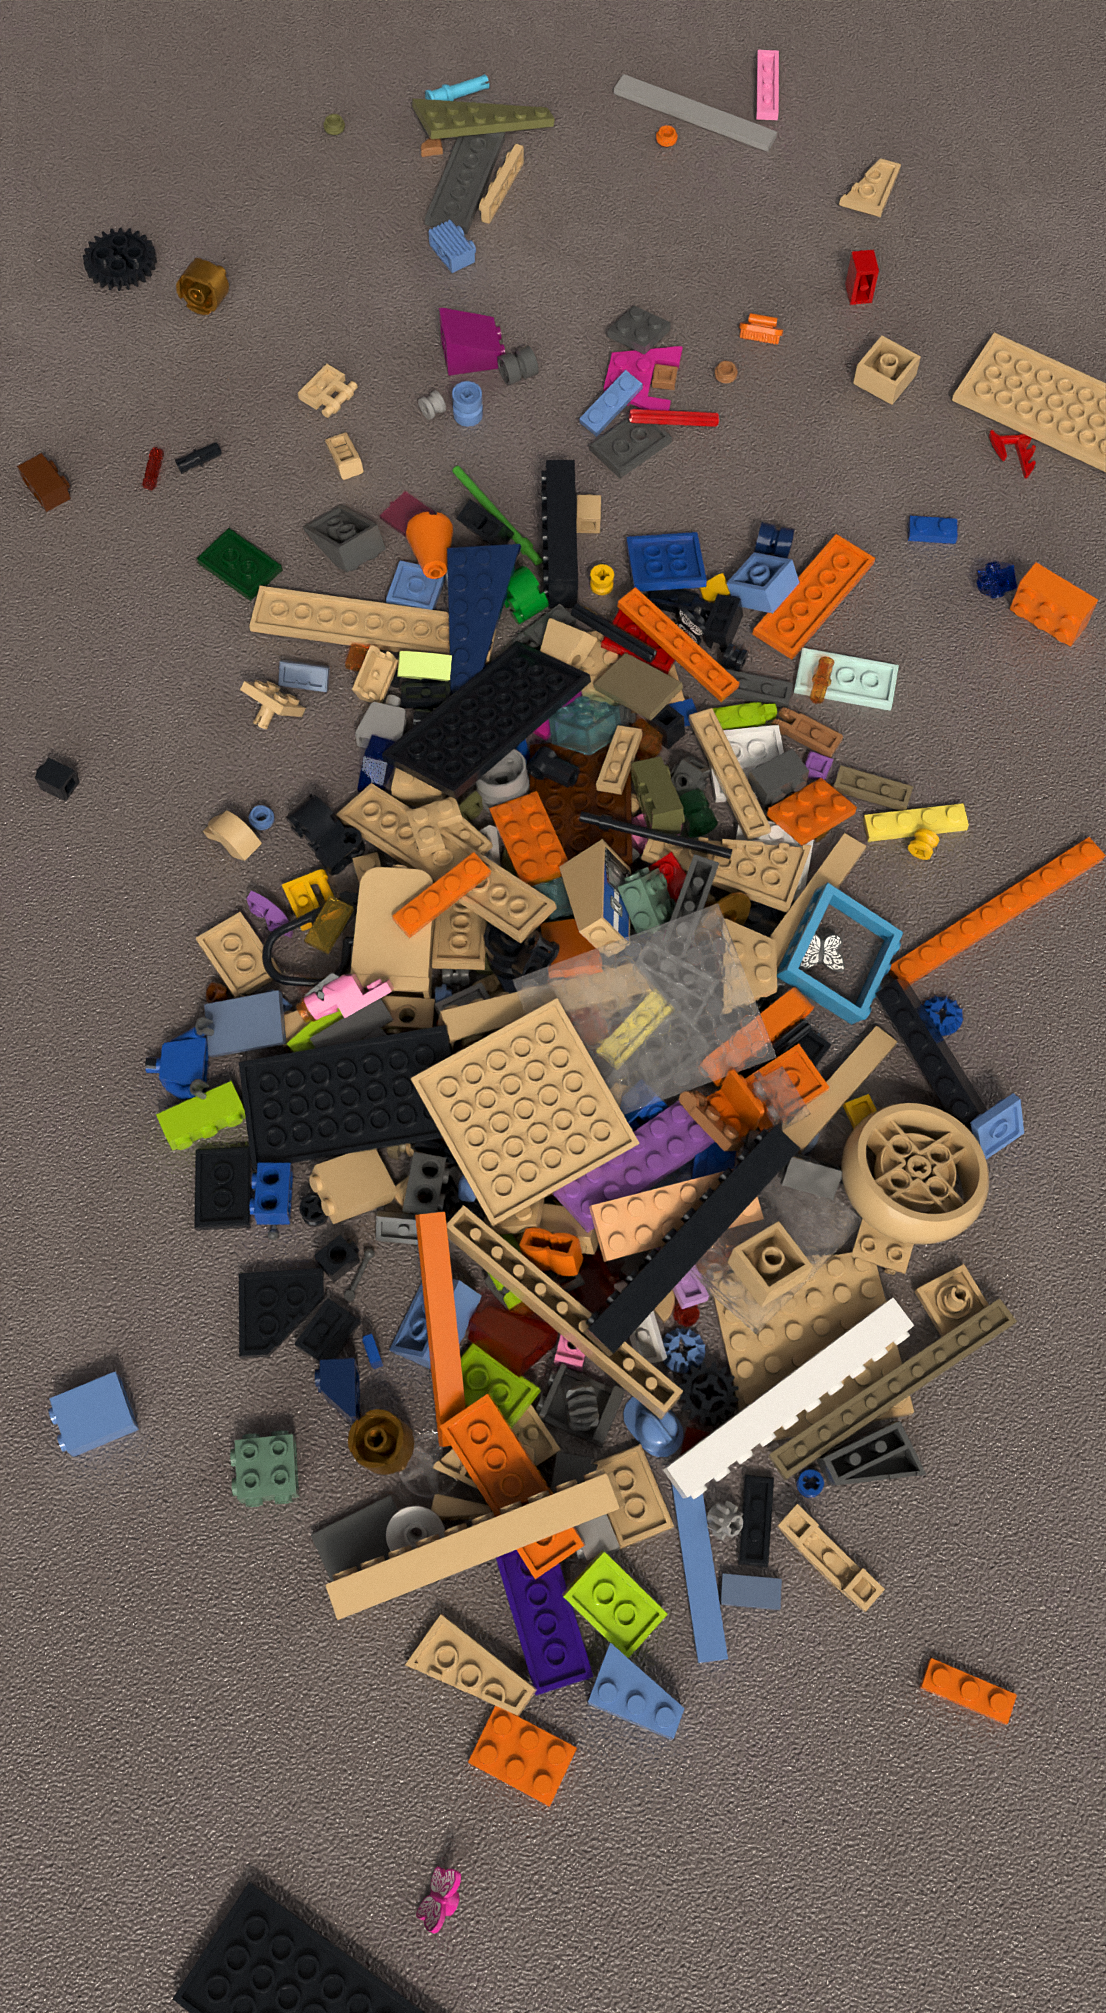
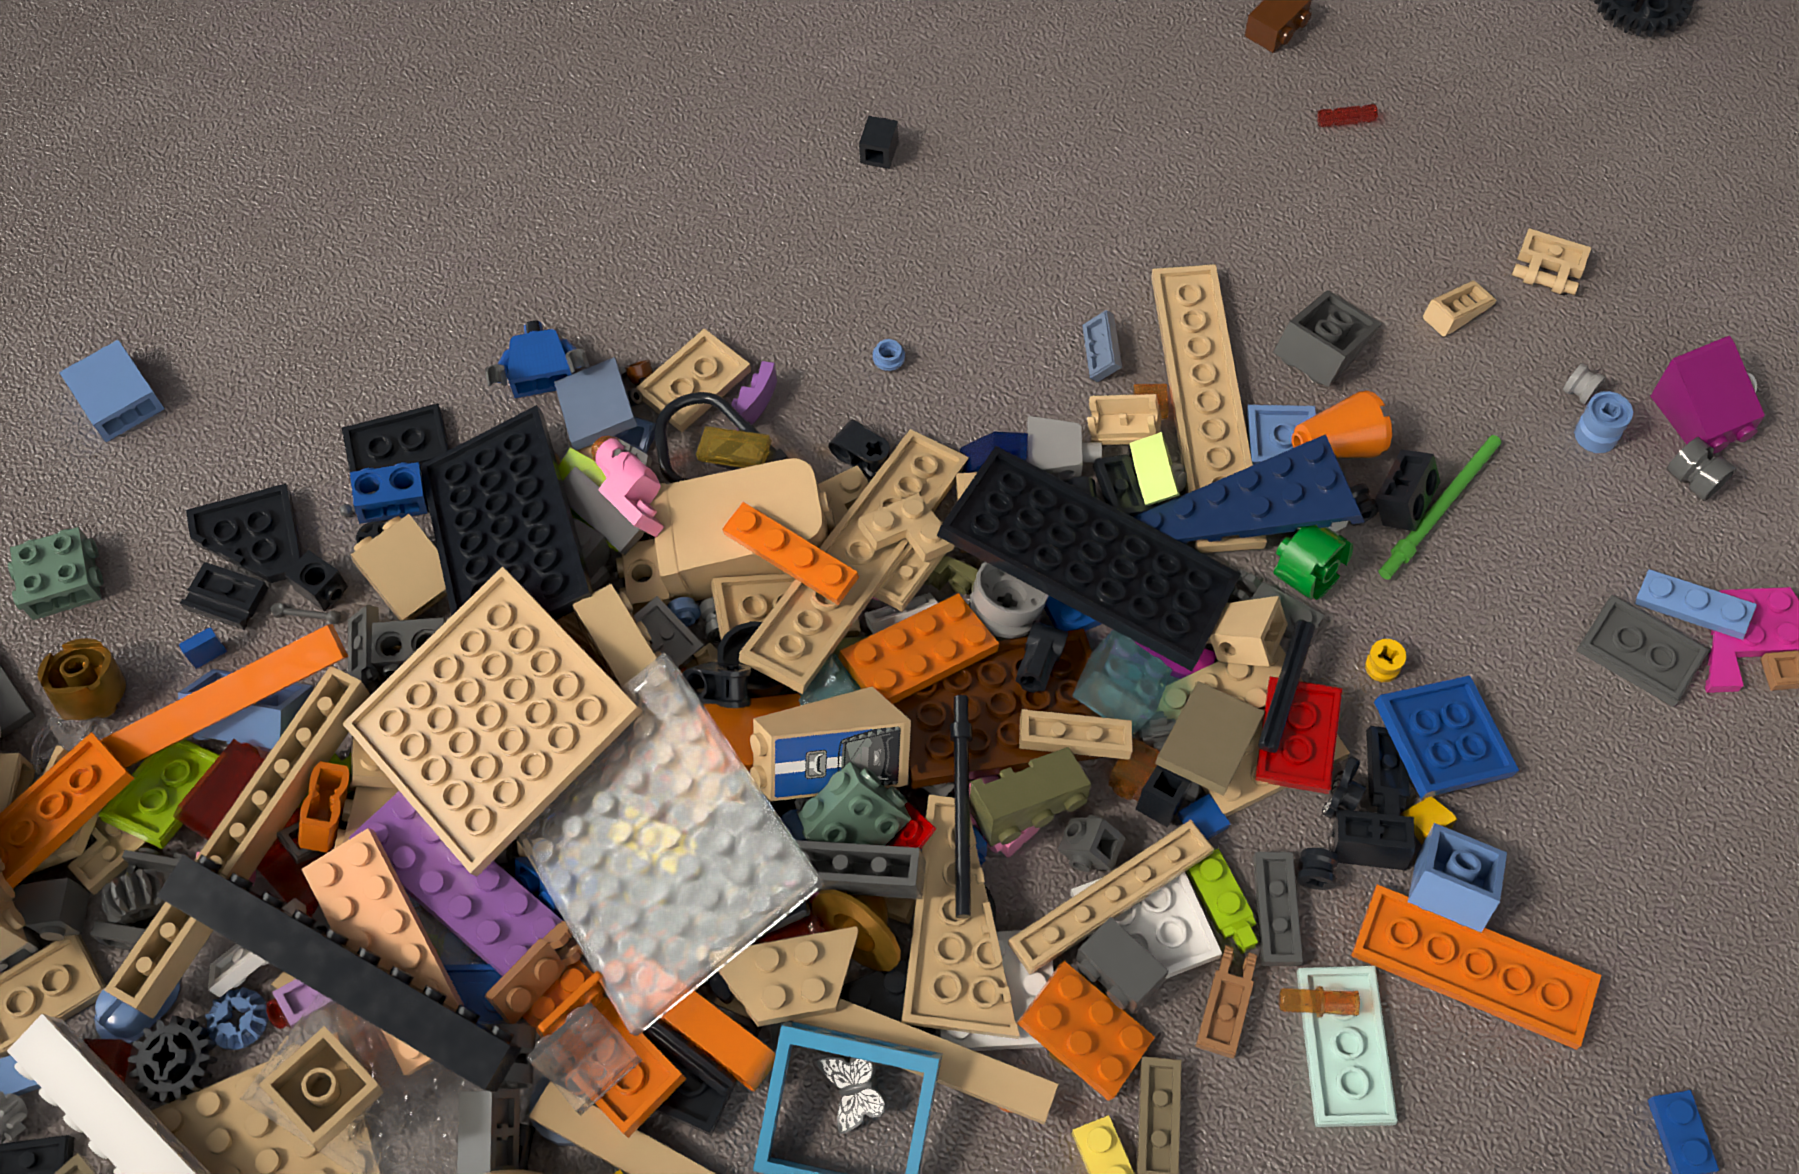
camera: 80 degrees right, 5 degrees down
(198, 457) = (1382, 154): black axle -> none
(201, 1117) = (466, 384): lime brick -> none
(203, 286) = (1641, 83): pearl gold brick -> none
(233, 835) = (848, 328): tan brick -> none
(239, 564) = (1245, 240): dark green tile -> none
(272, 702) = (1048, 317): tan plate -> none
(302, 896) = (791, 423): yellow plate -> none
(314, 822) = (886, 405): black brick -> none
(340, 1386) = (141, 621): dark blue slope -> none
(402, 511) = (1403, 401): clear pink piece -> none
(559, 533) = (1432, 583): black brick -> none
(588, 513) = (1489, 617): tan brick -> none
(668, 417) = (1711, 695): red axle -> none
(678, 644) = (1297, 777): orange plate -> none
(697, 814) = (1036, 865): clear green wheel -> none
(774, 540) = (1548, 883): dark blue wheel -> none
(818, 765) = (1175, 1029): medium lavender tile -> none

